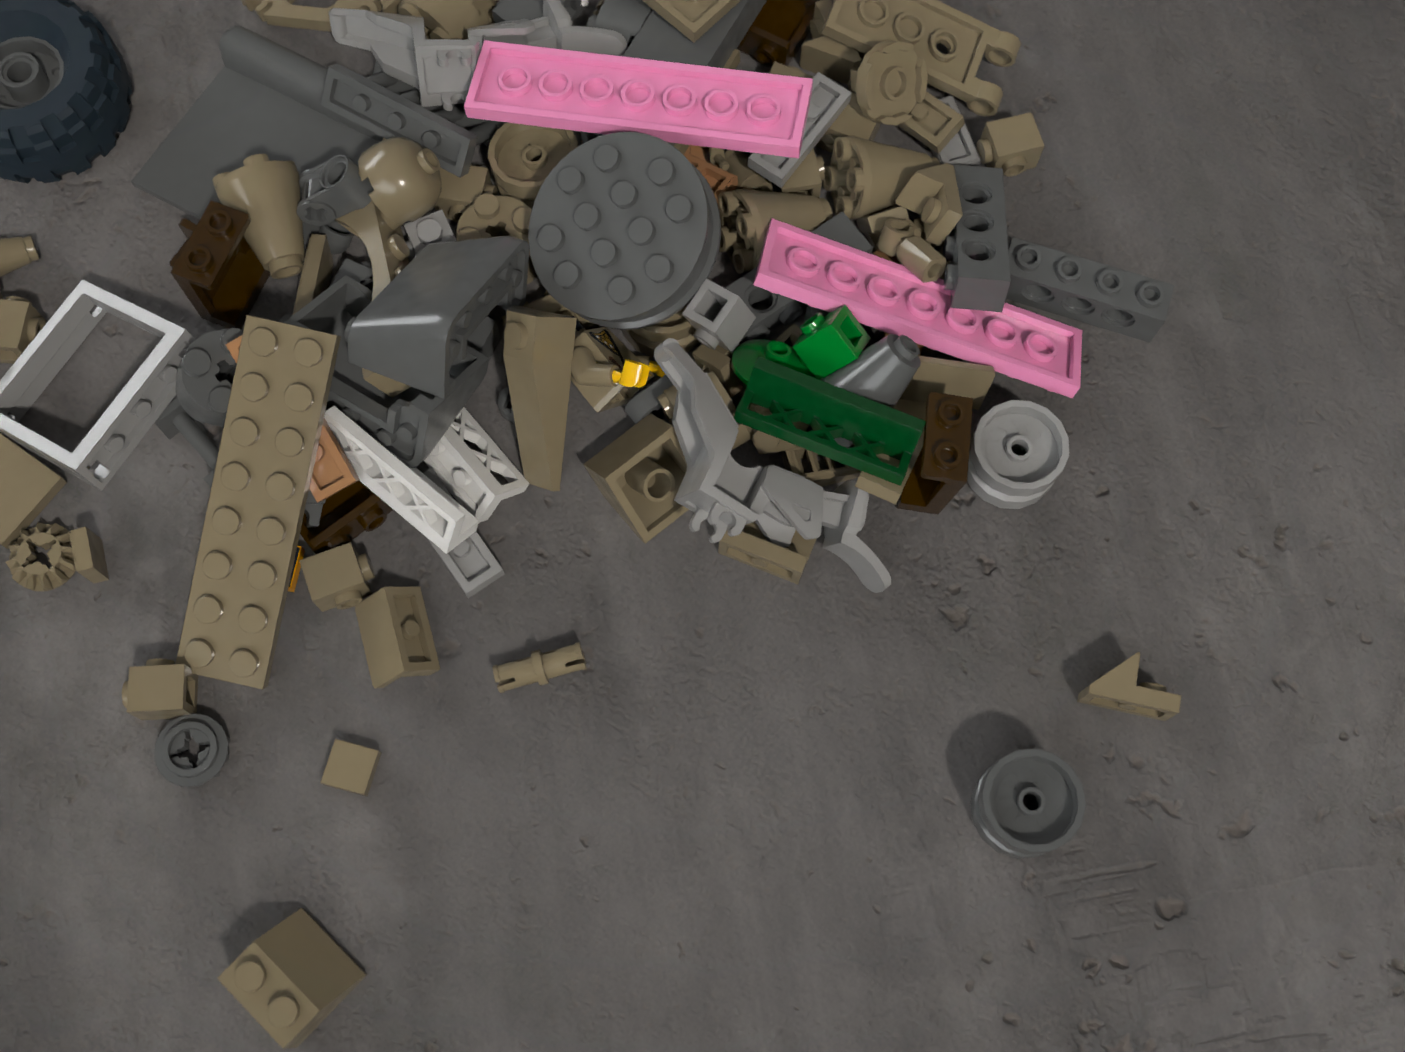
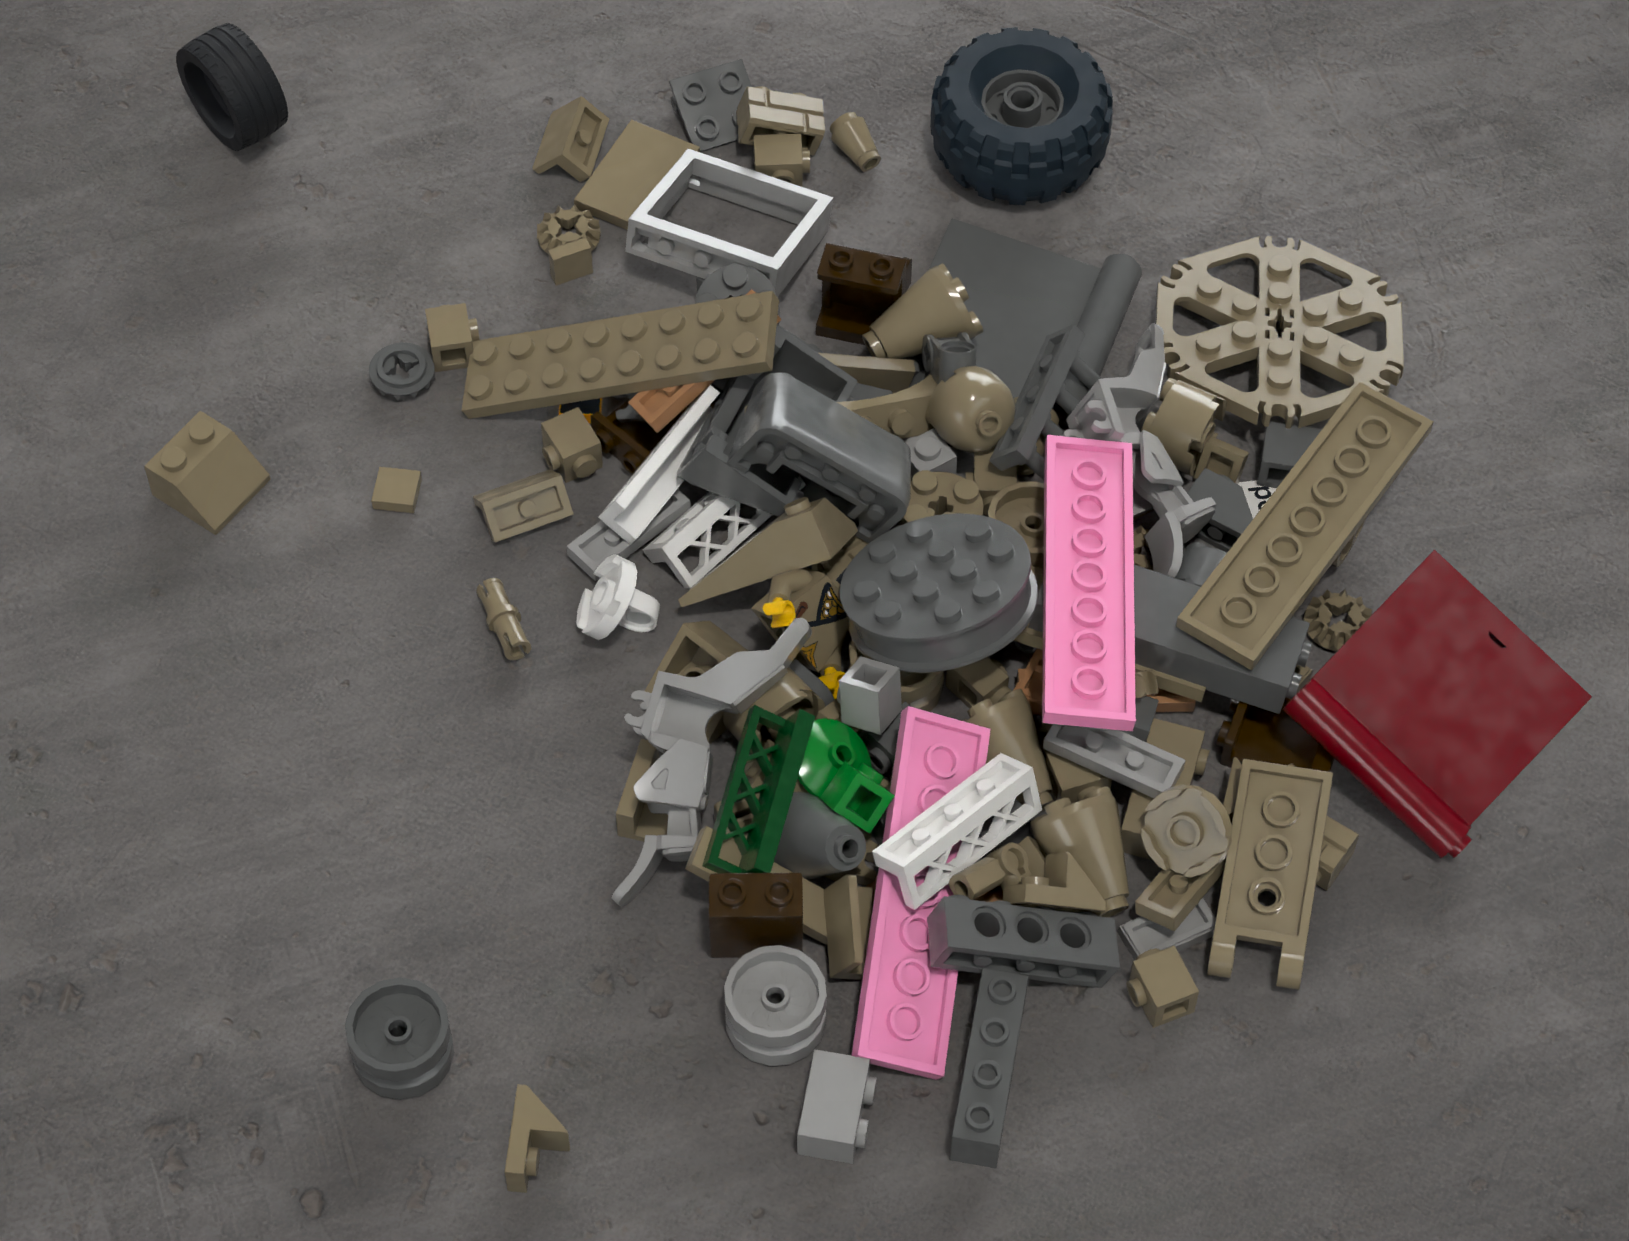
camera: 85 degrees right, 15 degrees down
(545, 554) = (616, 601): none -> white tile
(873, 259) = (956, 818): none -> white fence
(1112, 421) = (834, 1107): none -> light grey brick

